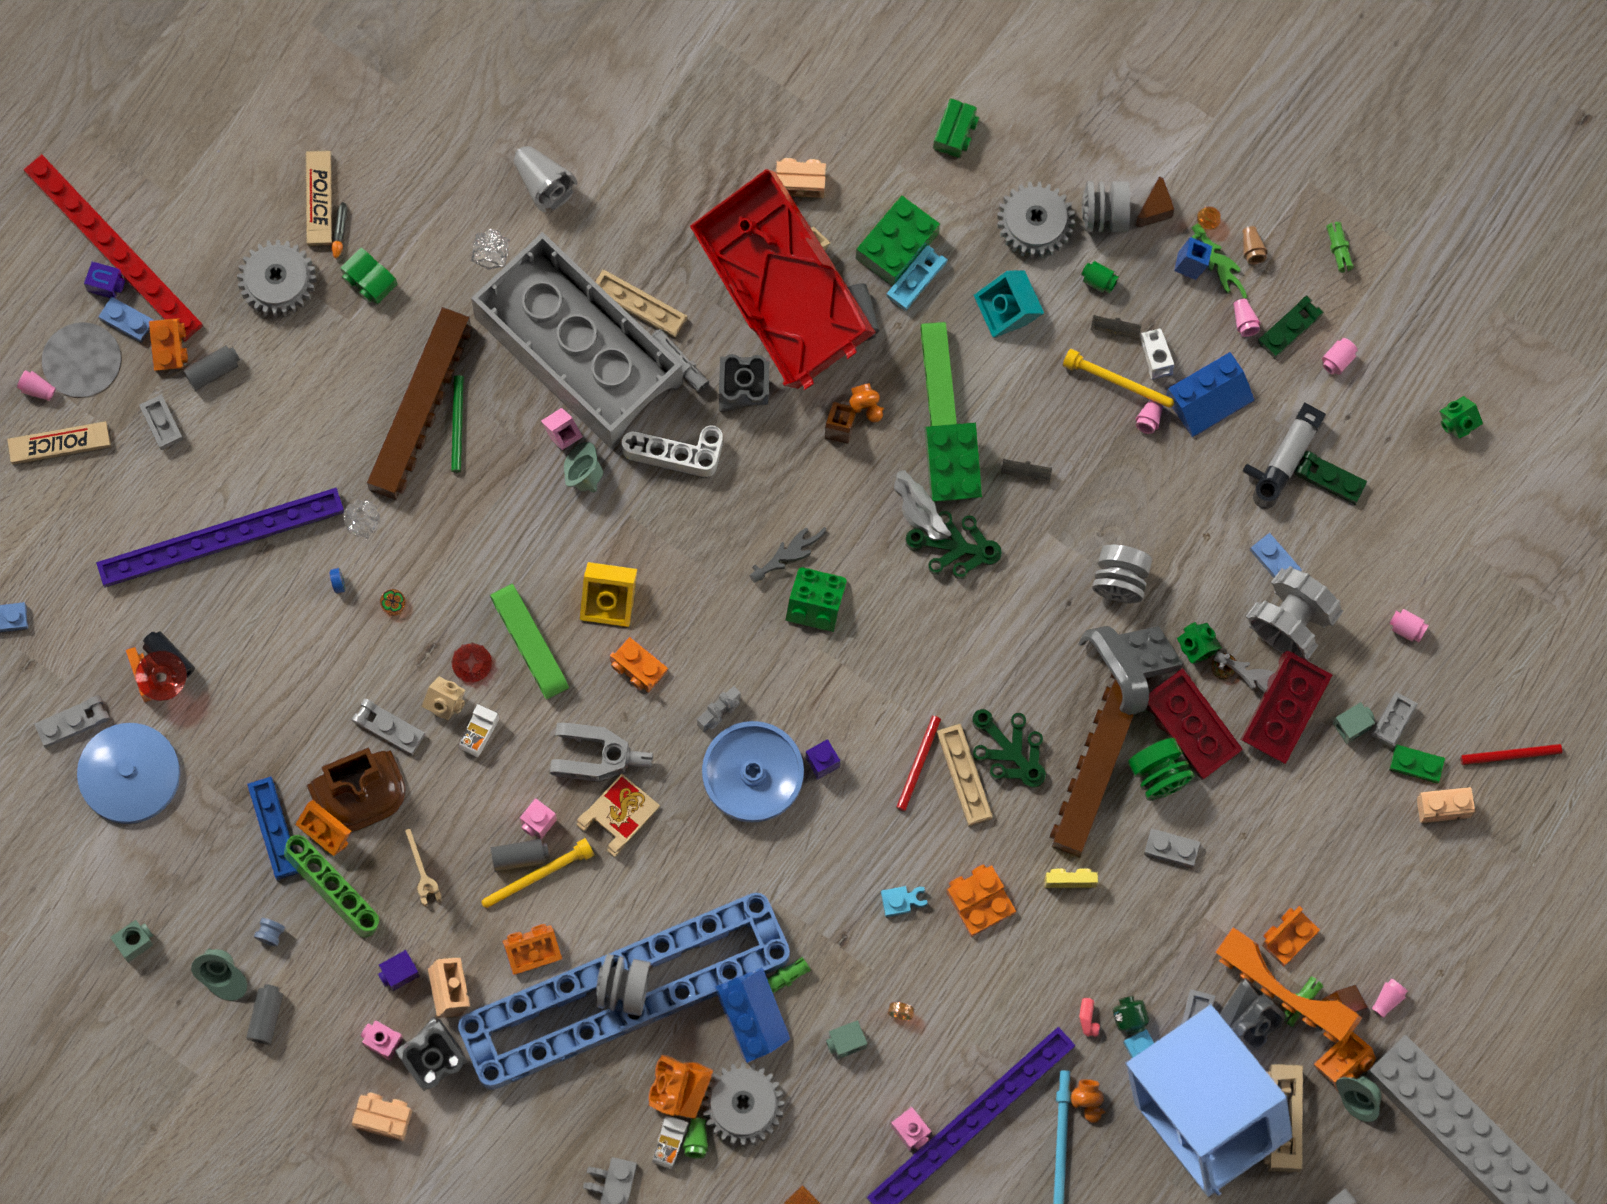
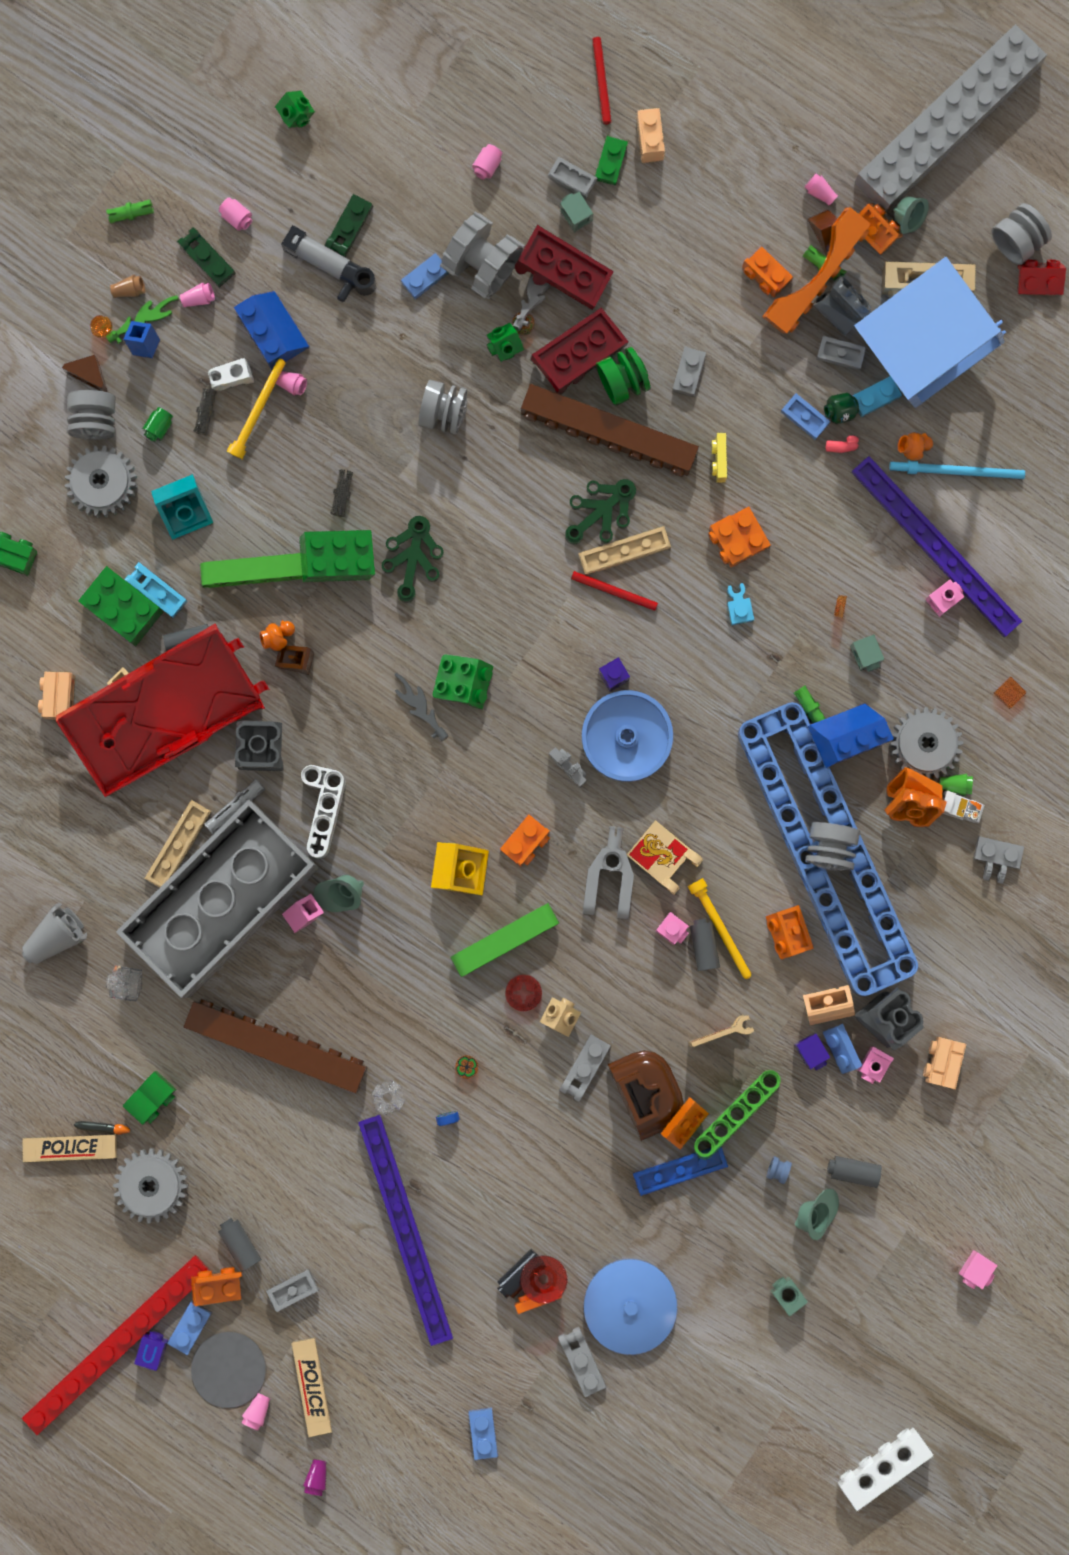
camera: 85 degrees left, 10 degrees up
(150, 1148) = (978, 1271): none -> bright pink brick
(407, 1000) = (842, 1049): none -> medium blue plate
(457, 424) = (294, 1011): green bar -> none
(478, 730) = (589, 985): white leg -> none
(919, 507) = (377, 588): light grey piece -> none
(1121, 976) = (805, 416): none -> medium blue plate
(1133, 659) = (523, 398): dark grey piece -> none

